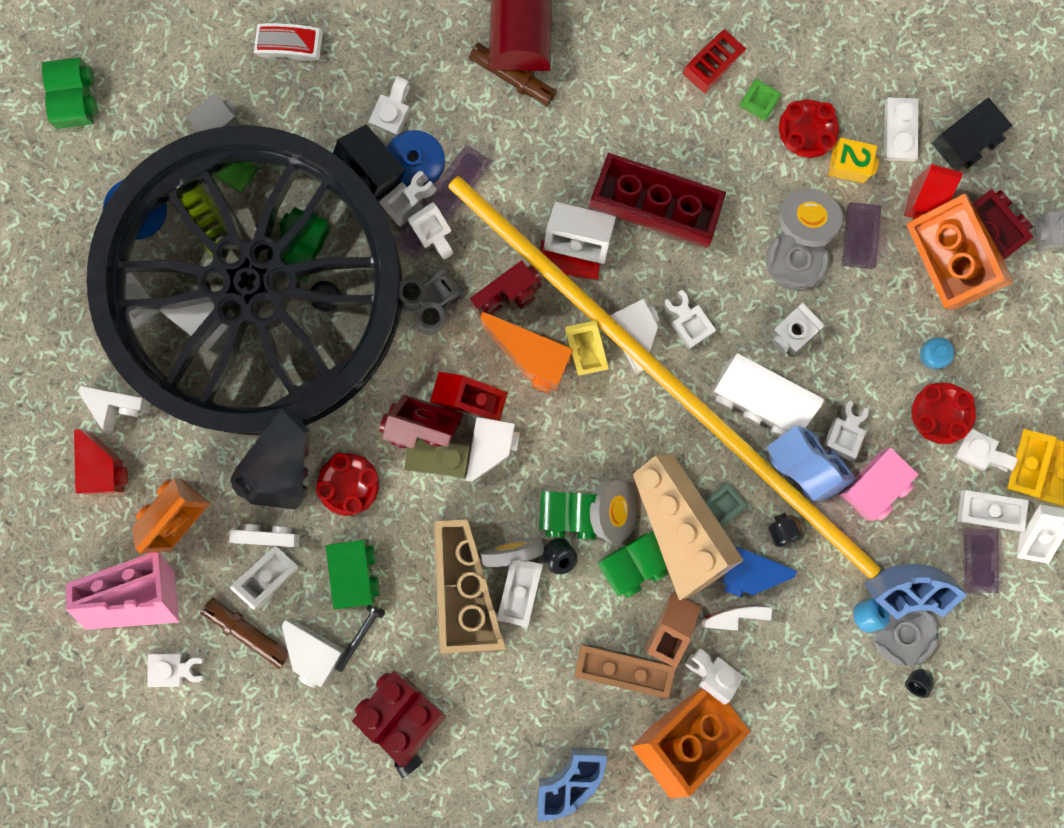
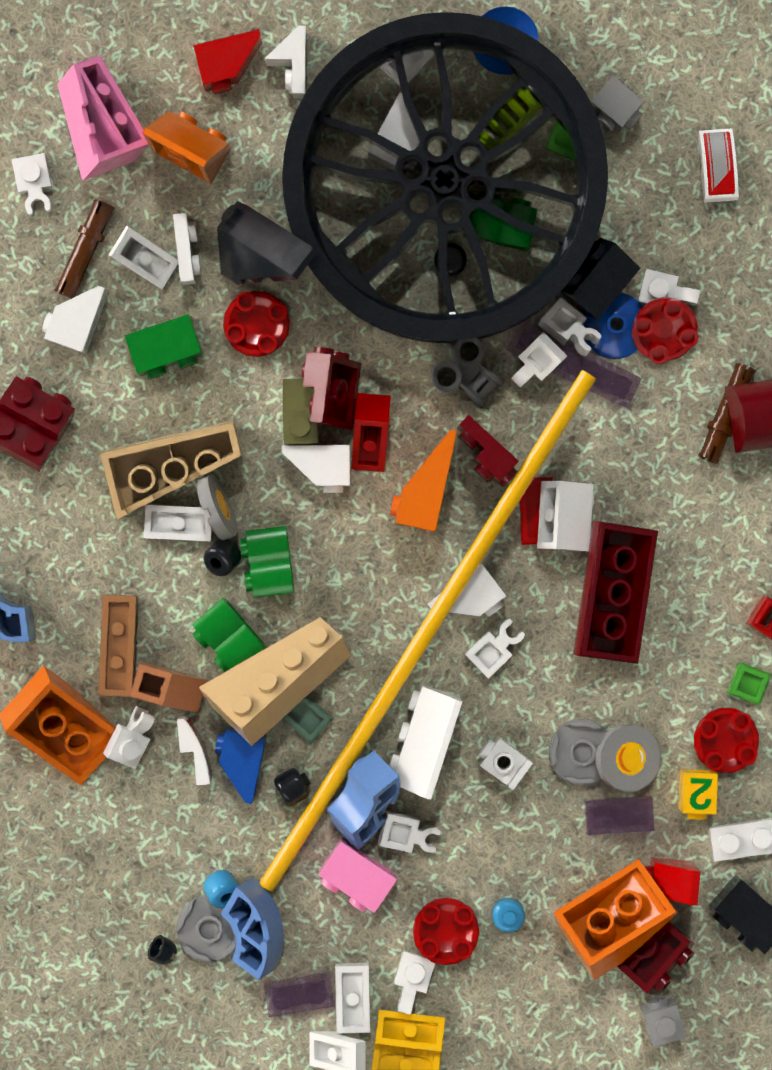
camera: 80 degrees right, 5 degrees up
(359, 636) = (129, 377): black piece -> none
(426, 115) = (664, 329): none -> red dish
(587, 347) = (444, 545): light yellow slope -> none
(614, 511) = (278, 605): light grey tile -> none

